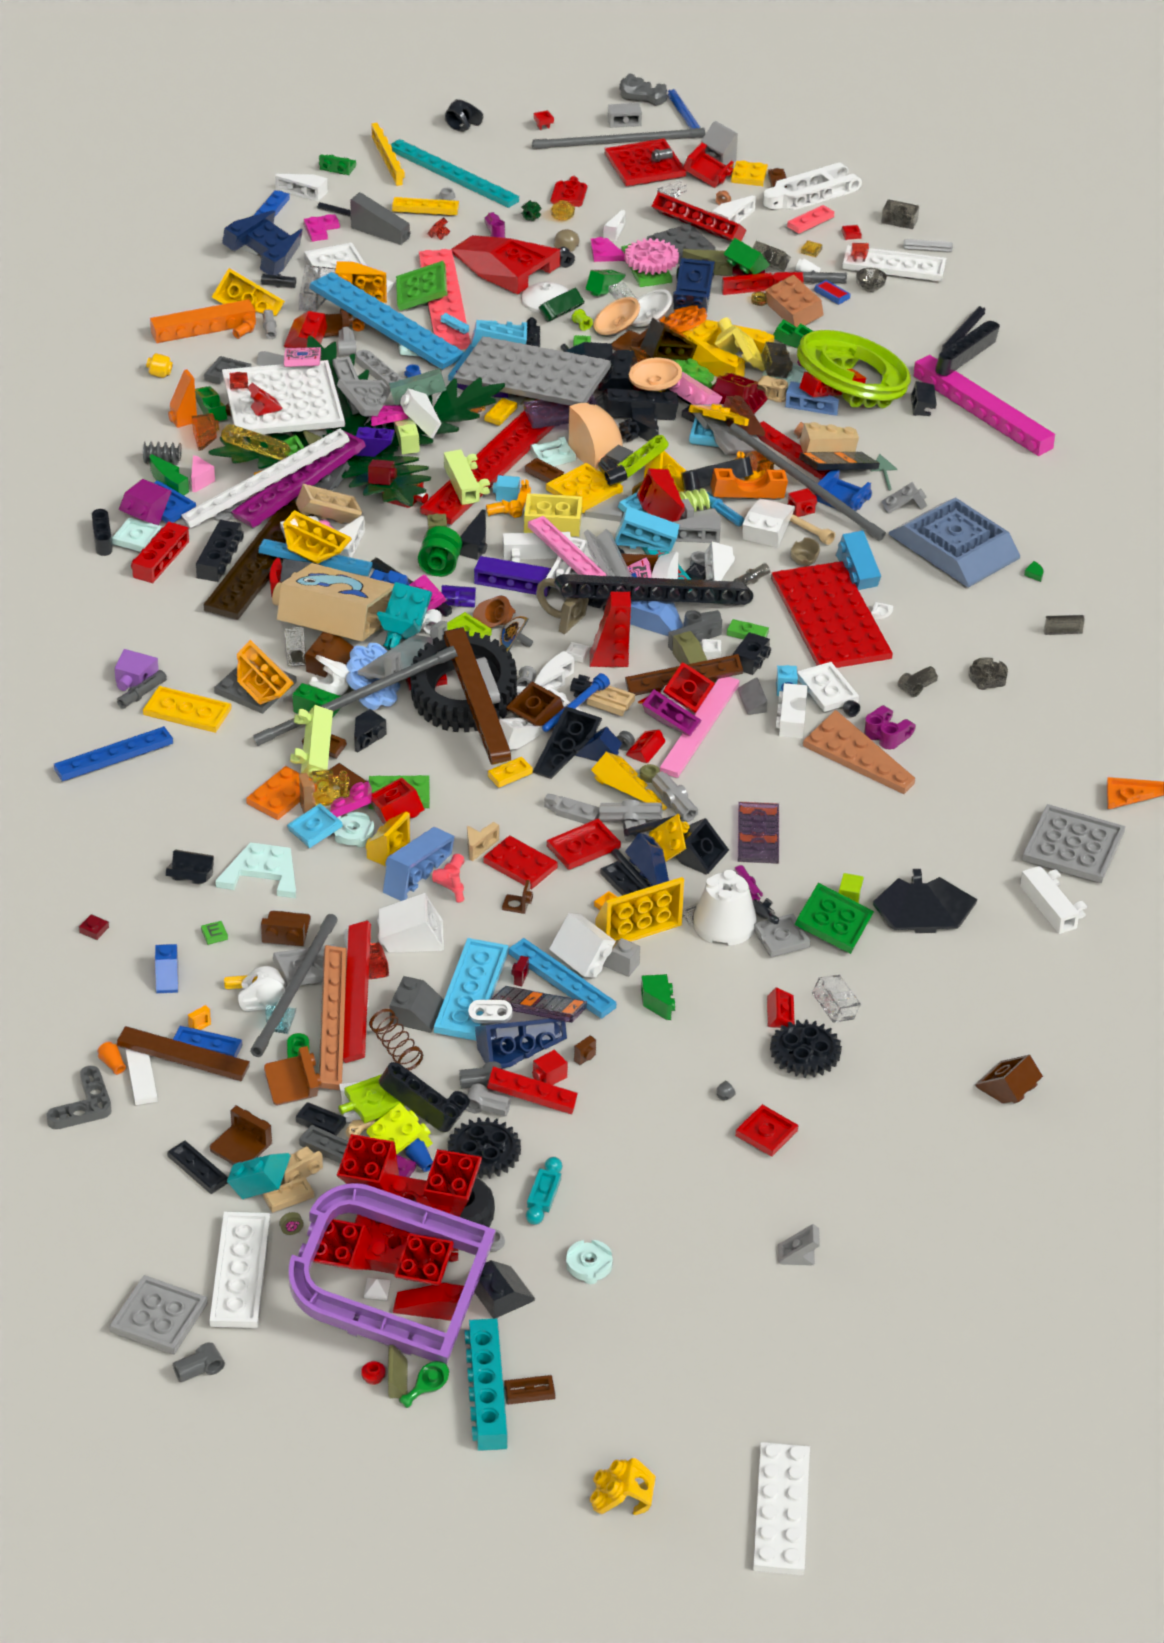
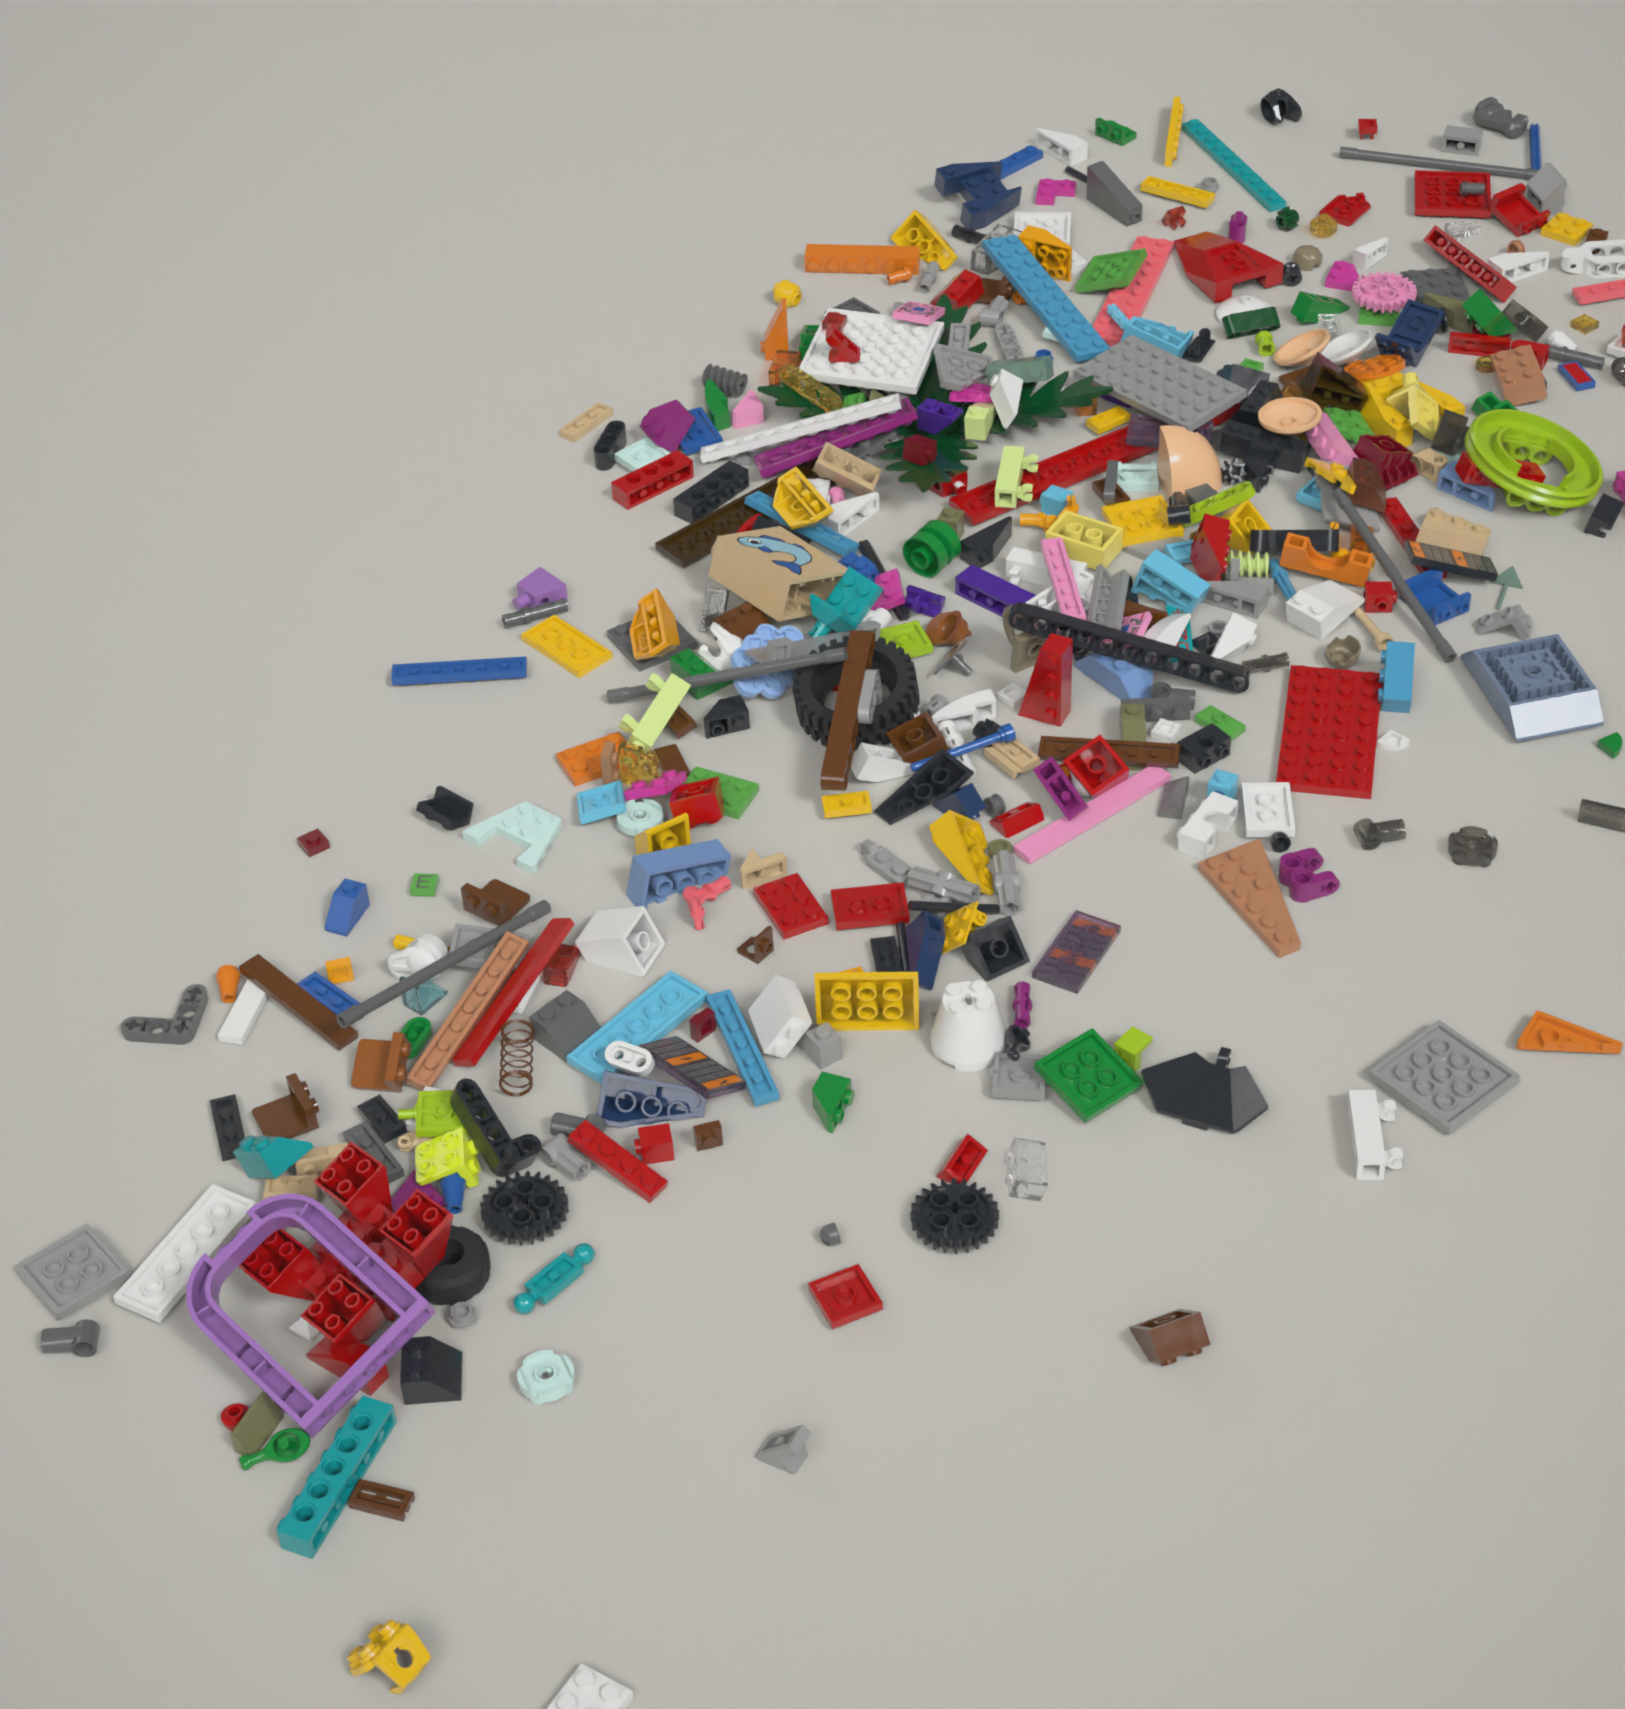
camera: 30 degrees right, 0 degrees up
(62, 517) = (586, 422): none -> tan tile
(544, 462) = (1111, 482): none -> dark grey beam

